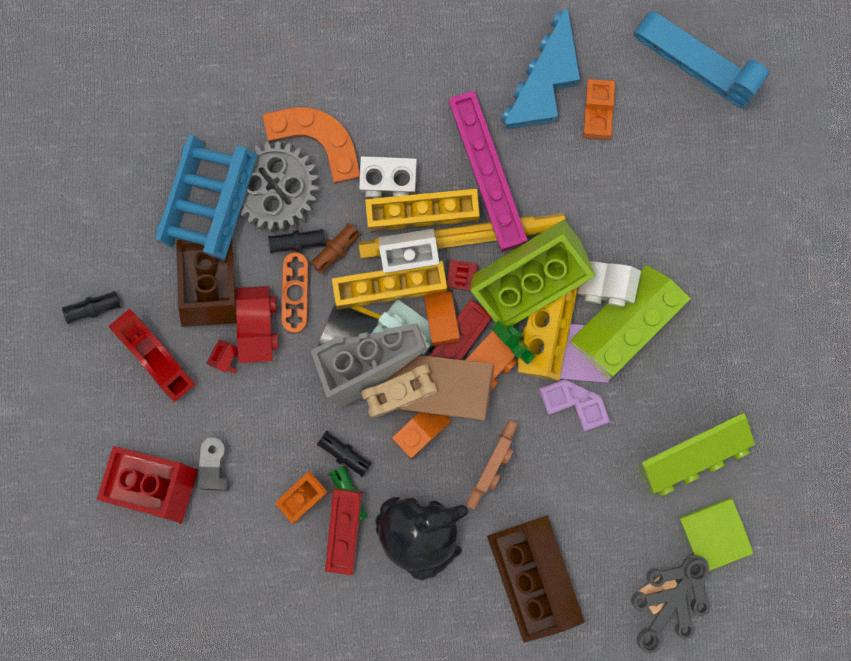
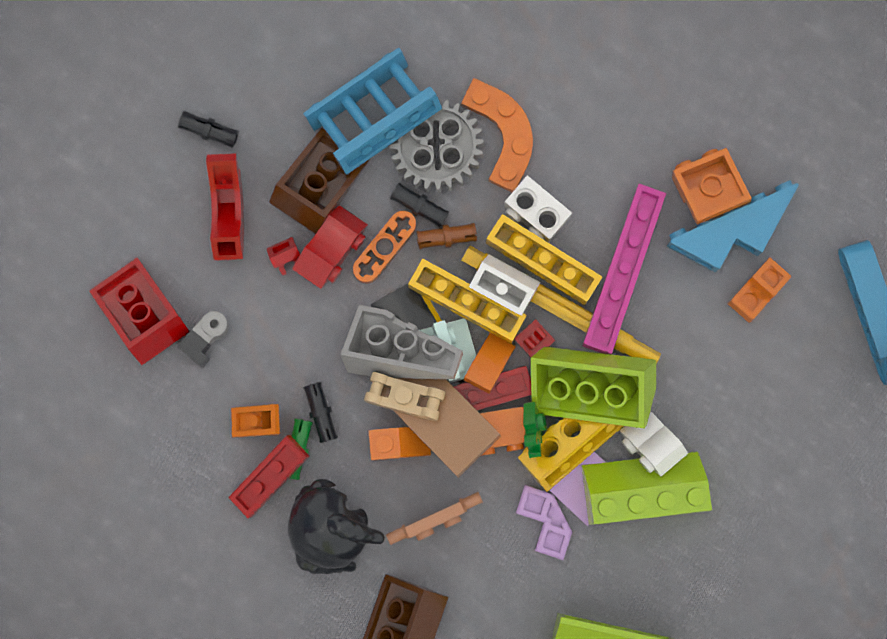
camera: 40 degrees right, 0 degrees up
(502, 59) = (710, 185): none -> orange plate

